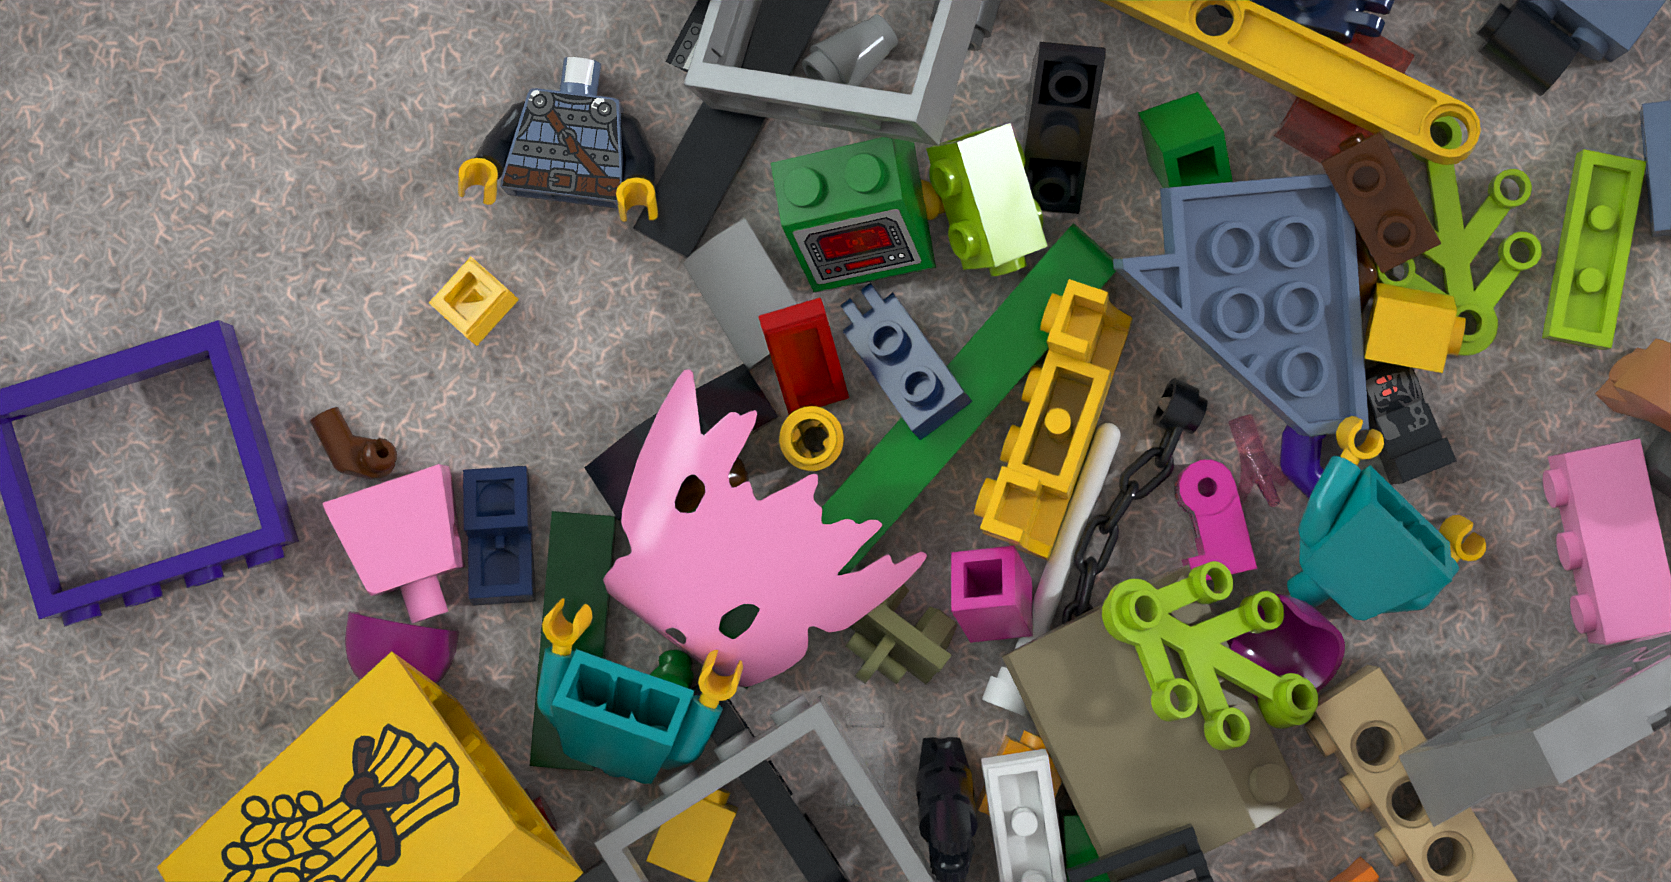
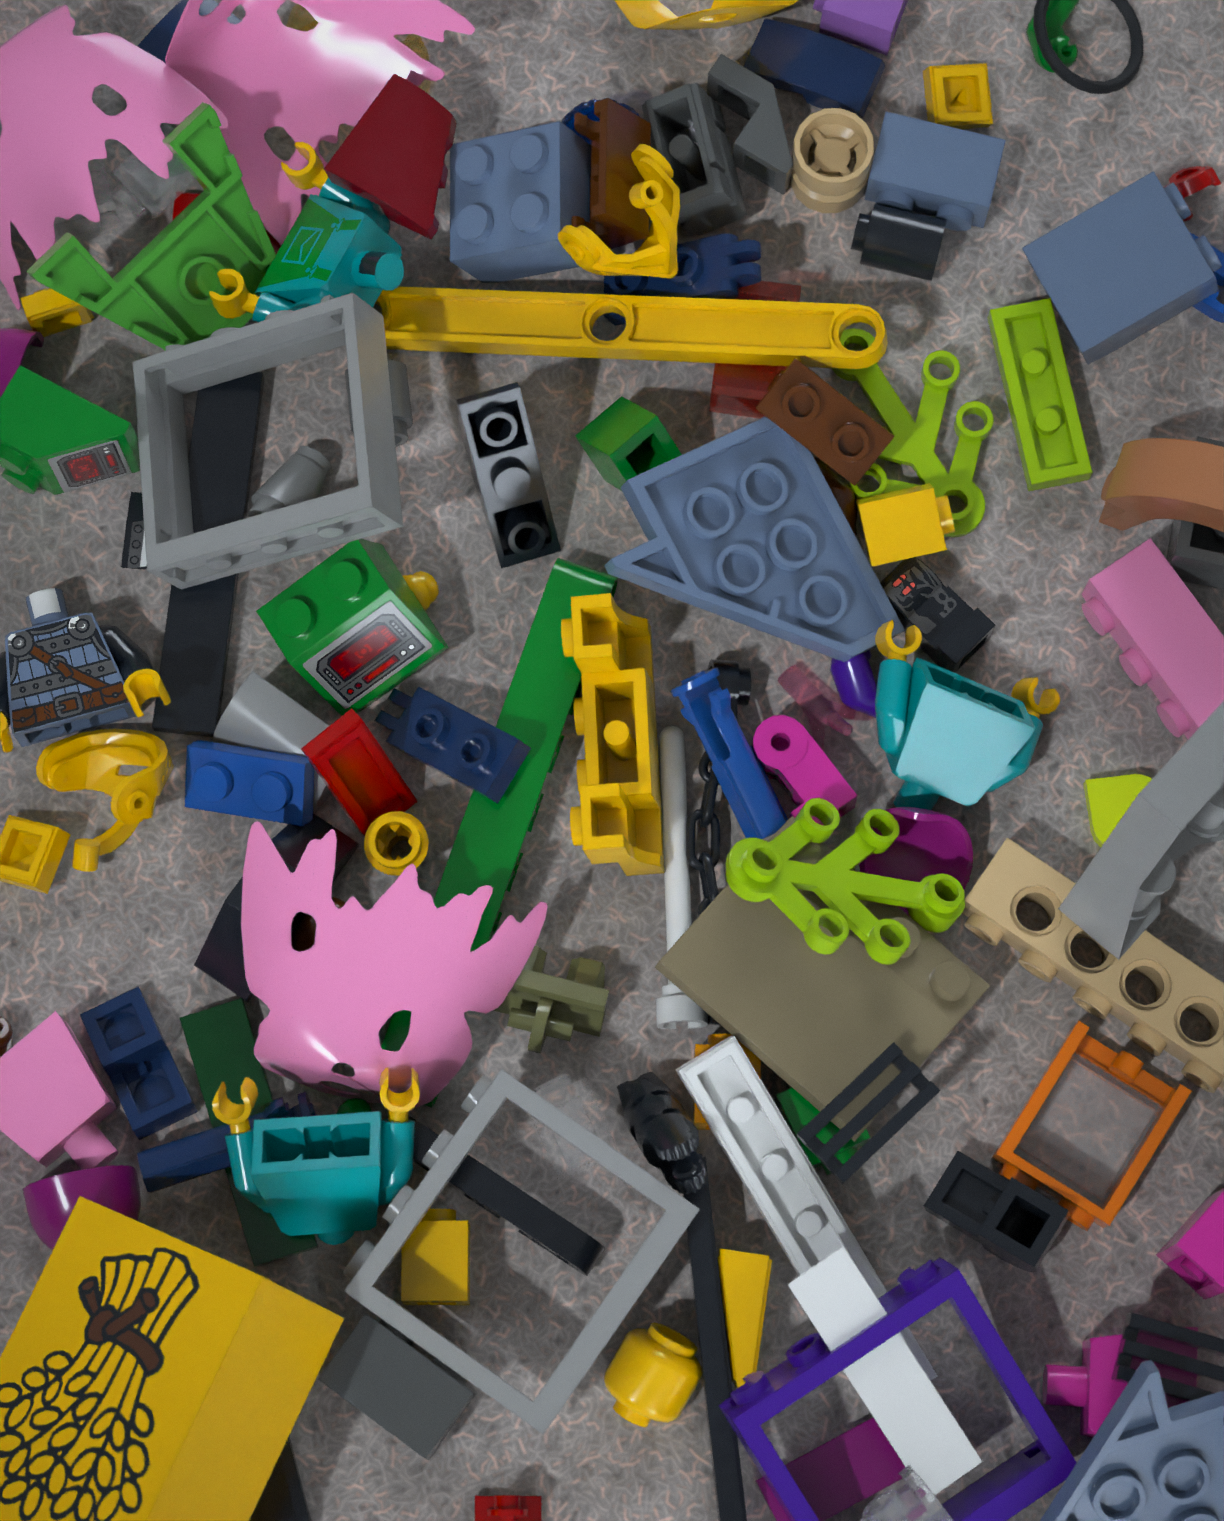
camera: 30 degrees left, 10 degrees down
(524, 647) = (206, 1150): none -> dark blue piece
(567, 238) = (93, 763): none -> yellow helmet
(700, 320) = (249, 782): none -> blue plate
(987, 199) = (469, 566): brick -> none
(991, 594) = (623, 919): dark pink brick -> none
(1156, 480) = (731, 755): none -> blue piece
(1494, 673) = (1109, 800): none -> neon yellow tile

